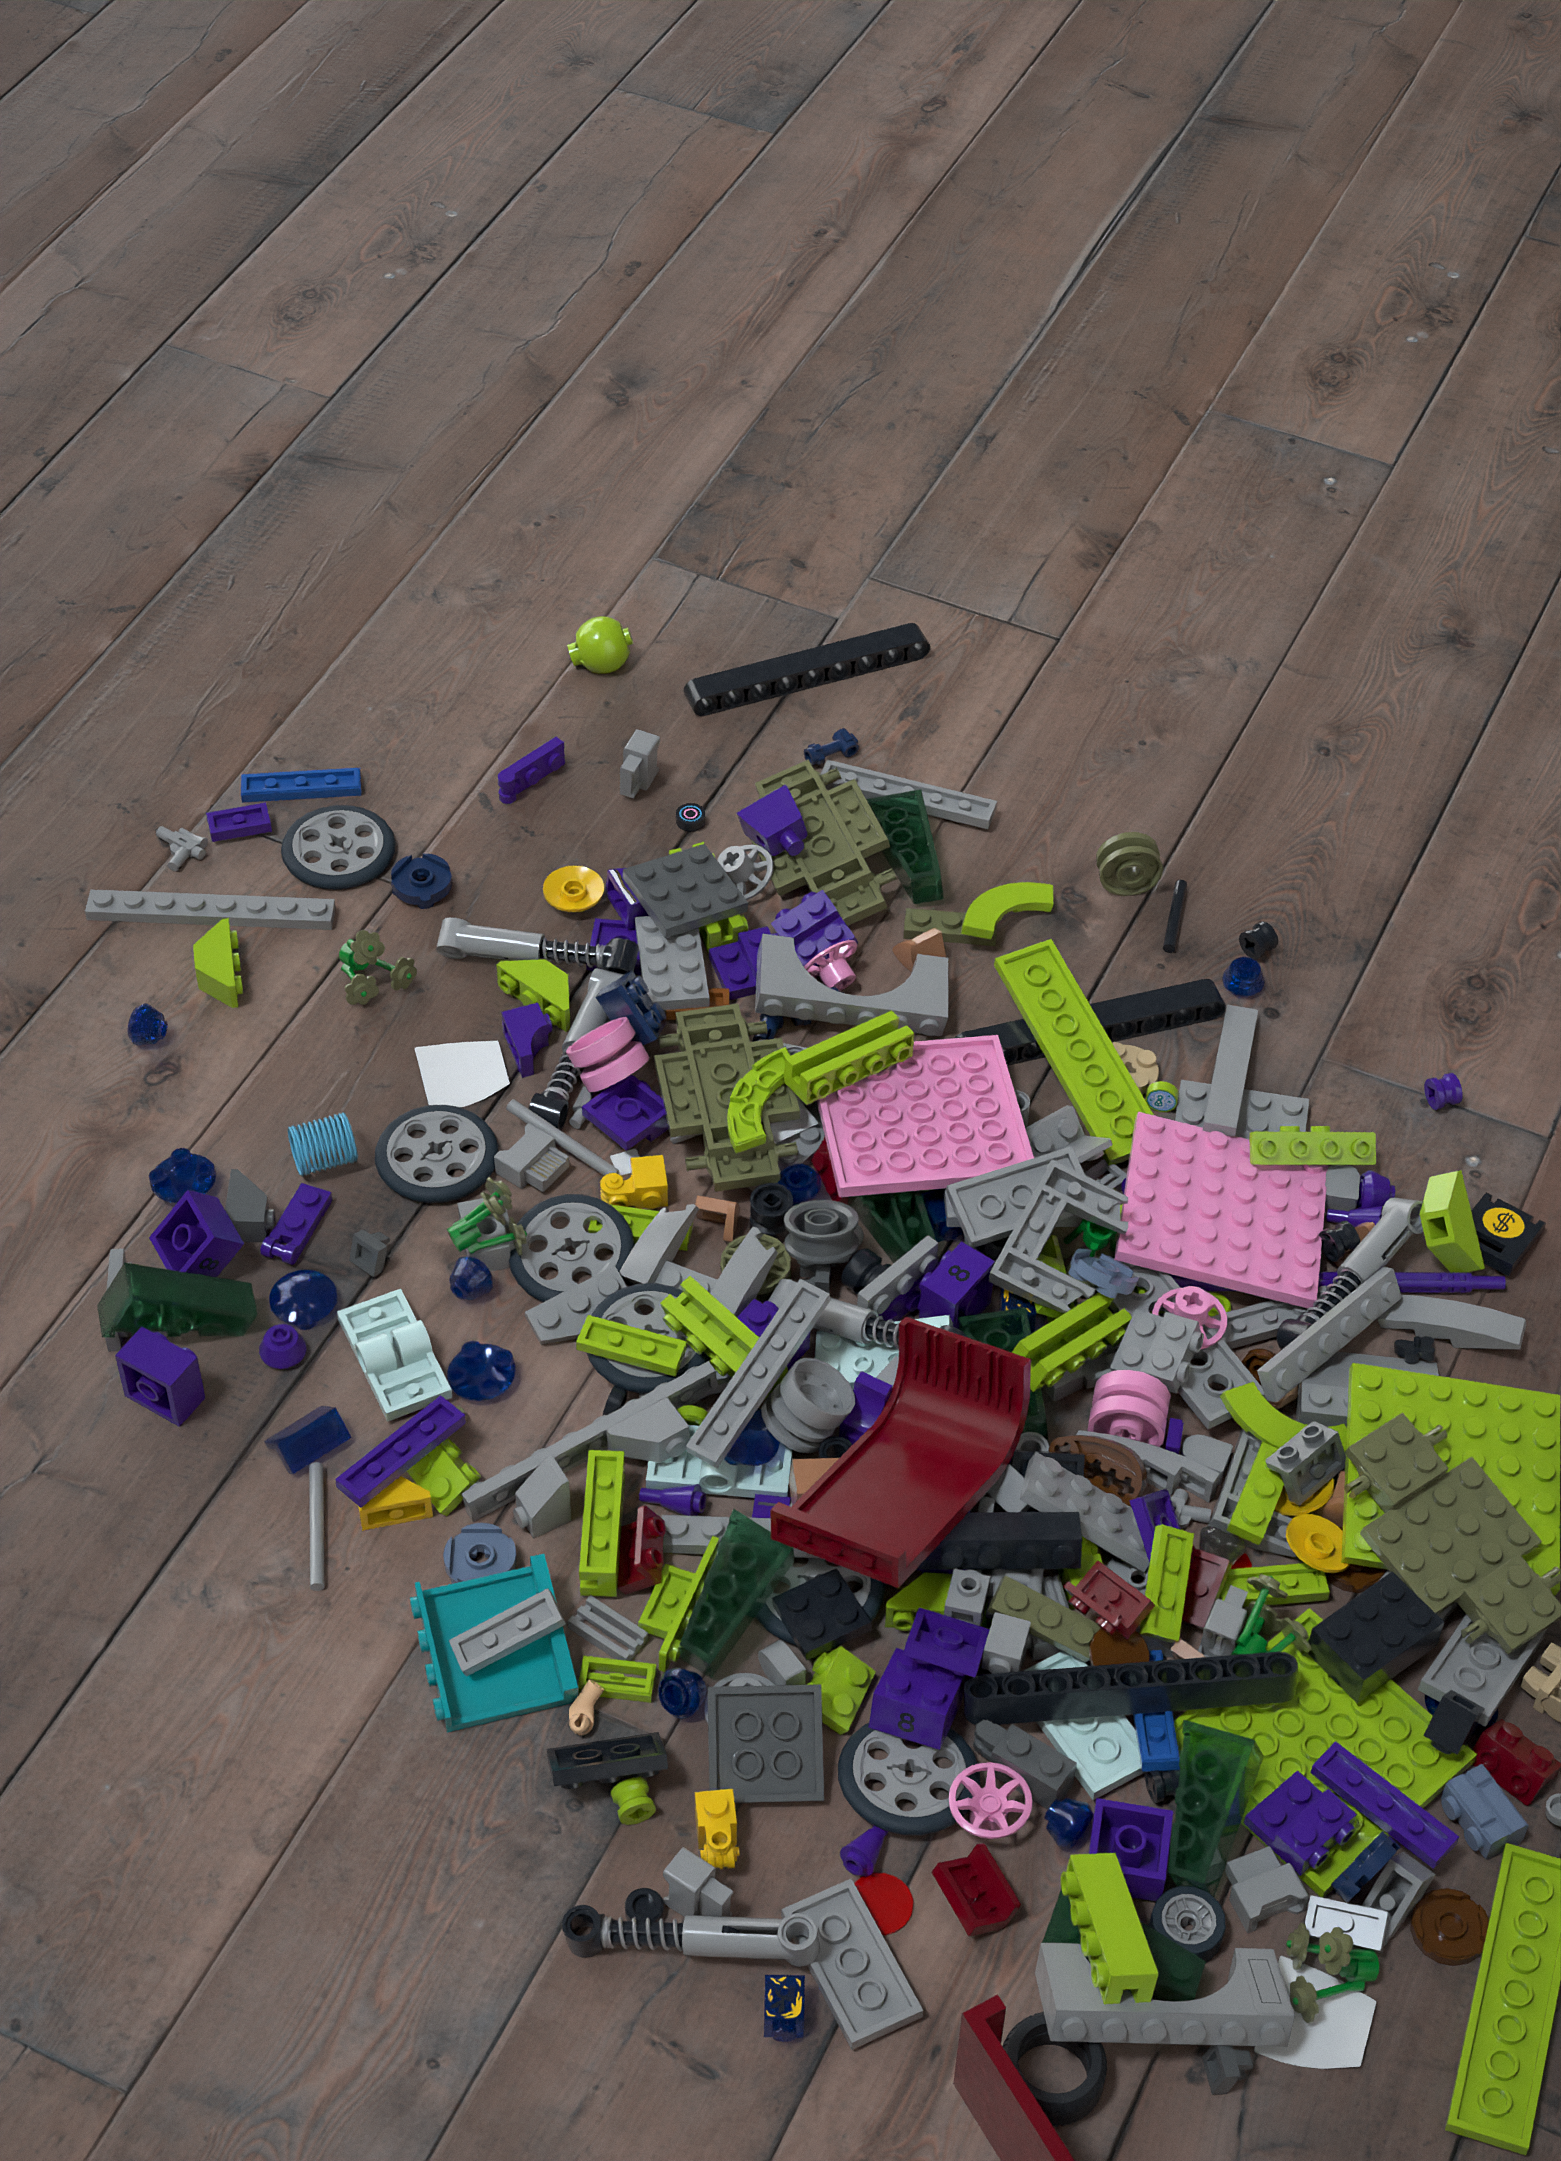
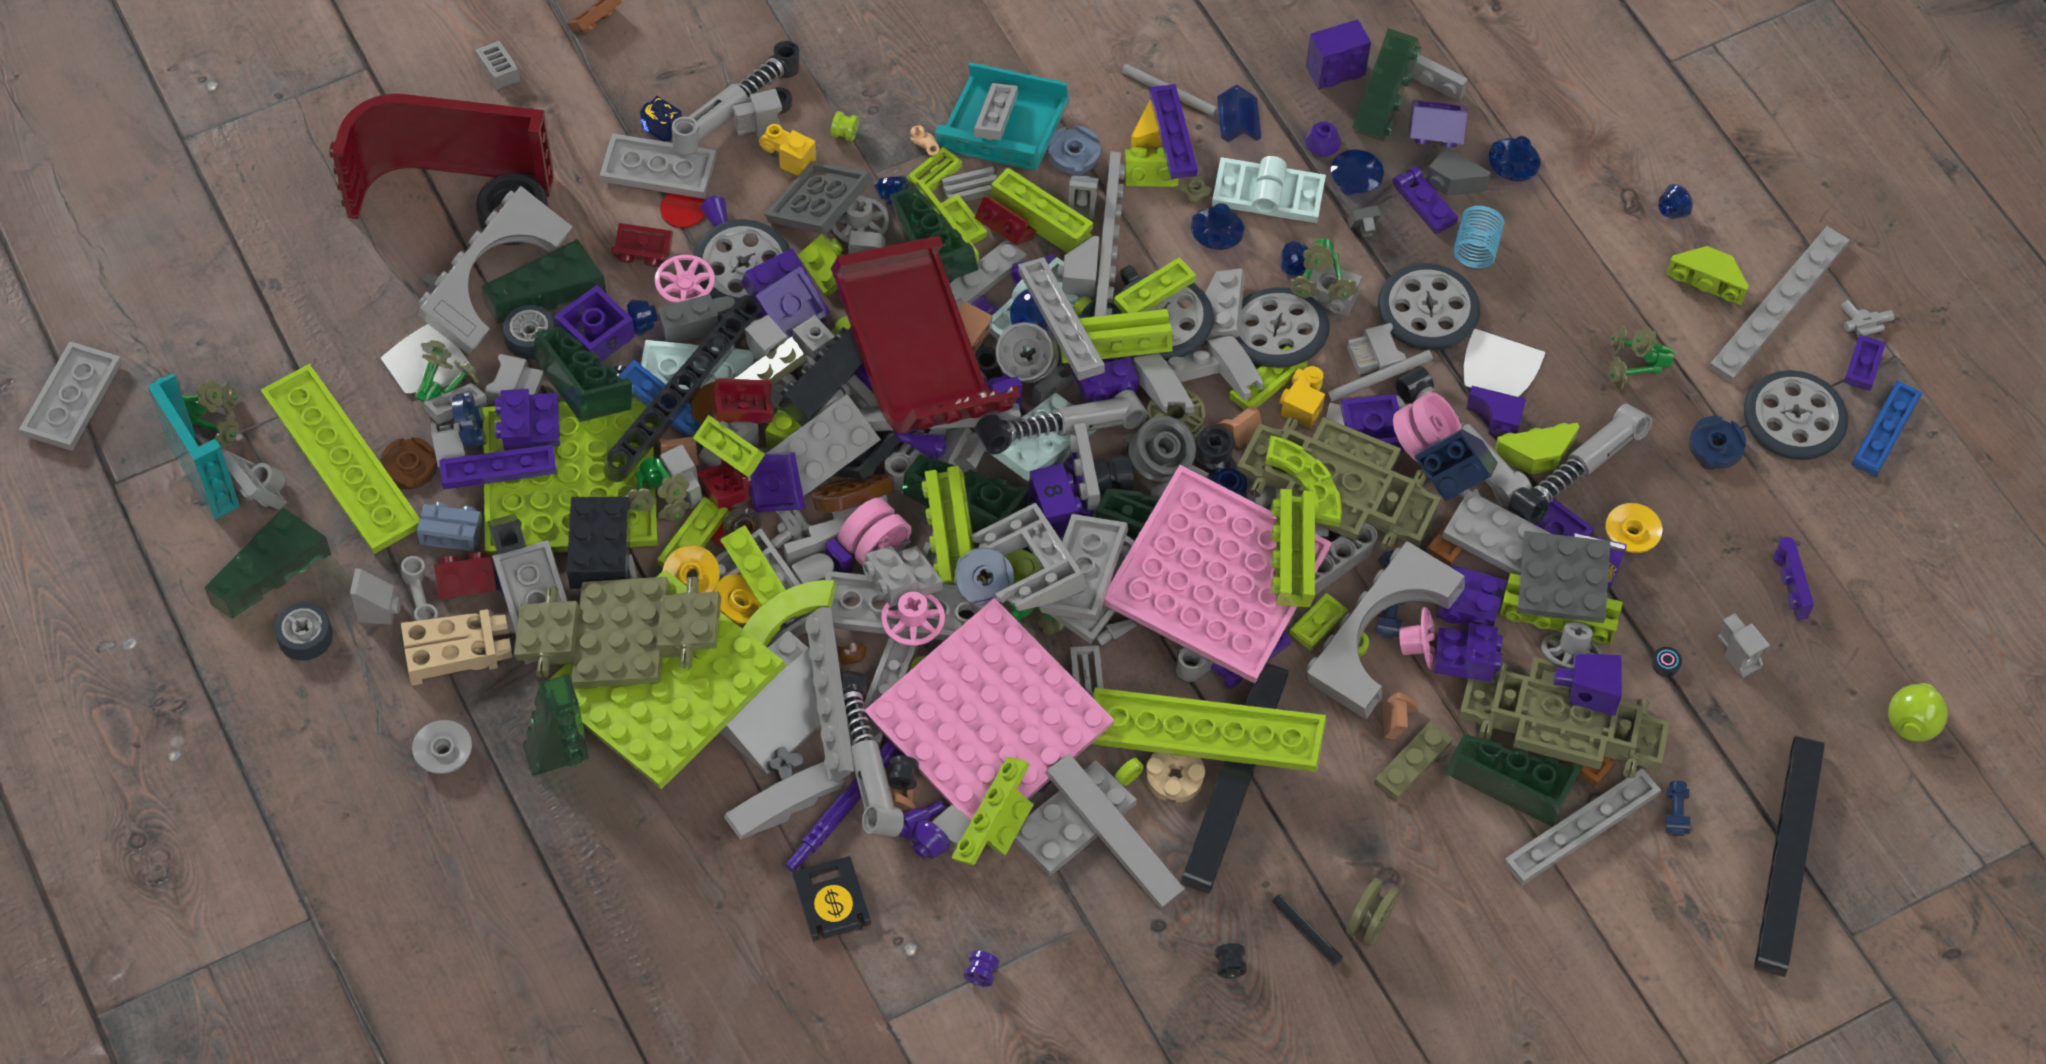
camera: 125 degrees right, 10 degrees up
(607, 1760) = (878, 122): black plate -> none
(995, 903) = (1405, 798): lime tile -> none
(1063, 1131) = (1130, 666): light grey bracket -> none
(1109, 1927) = (545, 250): lime brick -> none
(1243, 977) = (1203, 925): clear blue cone -> none
(1308, 1461) = (748, 595): dark grey bracket -> none
(1450, 1223) = (849, 838): lime slope -> none

